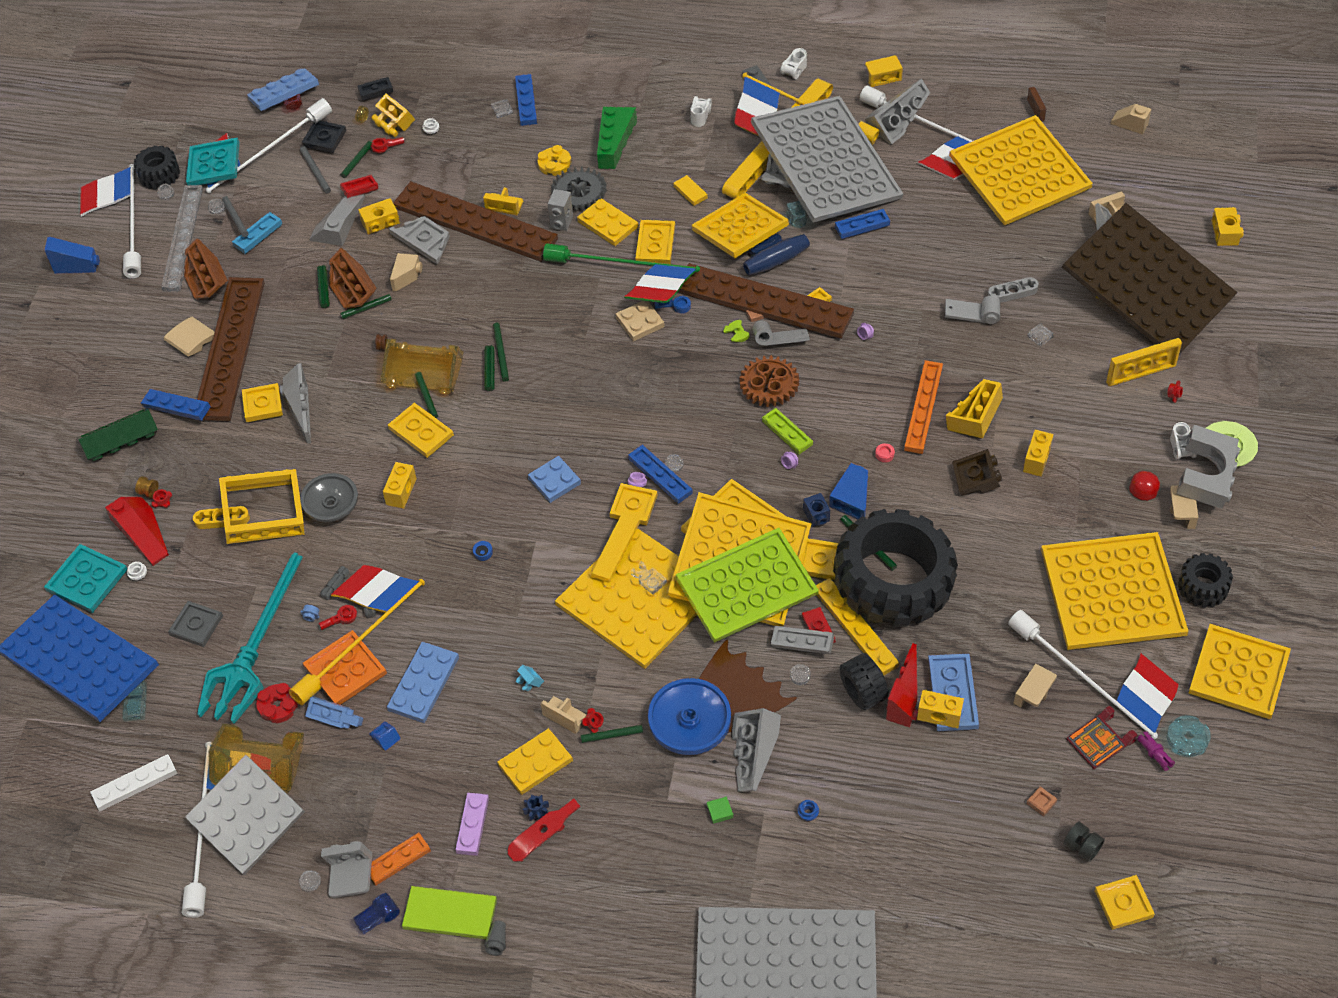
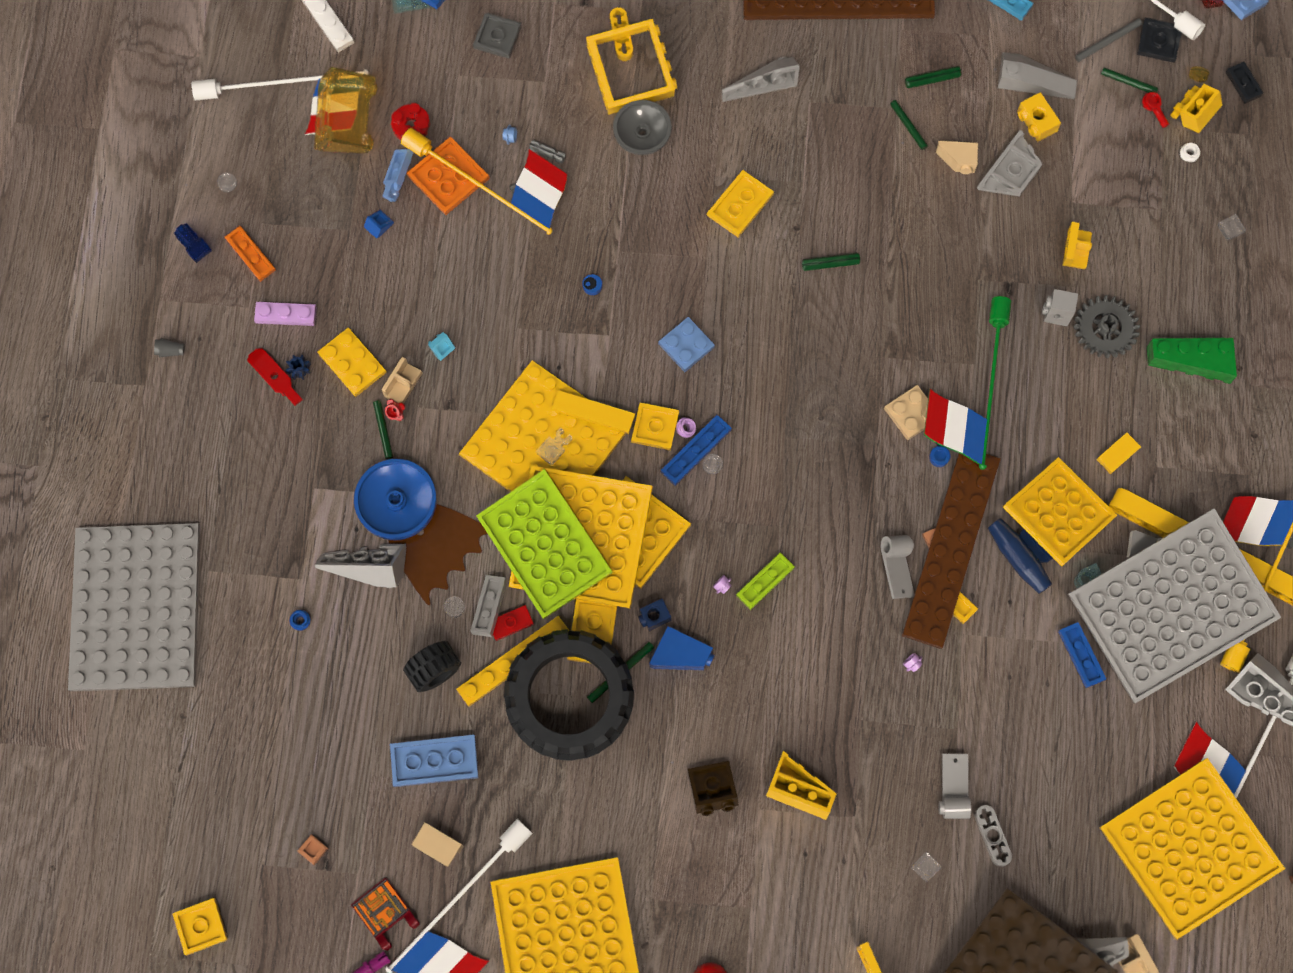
camera: 85 degrees right, 20 degrees up
(240, 671) = (439, 82): teal piece -> none
(245, 814) = (284, 114): light grey plate -> none
(262, 402) = (766, 44): yellow plate -> none
(345, 615) = (510, 167): red plate -> none
(349, 280) = (937, 103): dark orange wedge -> none
(349, 869) = (232, 213): light grey bracket -> none
(359, 186) = (1084, 89): red plate -> none
(380, 341) = (856, 147): reddish brown bush -> none
(399, 485) = (665, 192): yellow brick -> none
(423, 682) = (437, 249): medium blue plate -> none
(426, 395) = (787, 203): dark green bar -> none
(437, 365) = (824, 191): clear yellow windscreen -> none
(449, 912) = (196, 305): lime tile -> none
(475, 220) = (1046, 220): reddish brown plate -> none
(501, 353) = (855, 271): dark green bar -> none
(526, 100) = (1249, 252): blue plate -> none
(546, 160) = (1149, 306): yellow plate -> none
(607, 222) = (1058, 364): yellow plate -> none
(655, 241) = (1029, 419): yellow plate -> none
(700, 111) = (1256, 454): white piece -> none
(719, 810) = (300, 536): bright green tile -> none
(740, 335) = (900, 523): lime piece -> none
(780, 387) = (834, 539): dark orange gear -> none
(885, 452) = (741, 688): coral tile -> none
(903, 696) = (421, 711): red wedge -> none
(923, 407) = (806, 729): orange plate -> none
(940, 709) = (401, 744): yellow brick -> none
(1038, 453) = (744, 857): yellow brick -> none
(1090, 845) = (261, 888): pearl dark grey wheel -> none

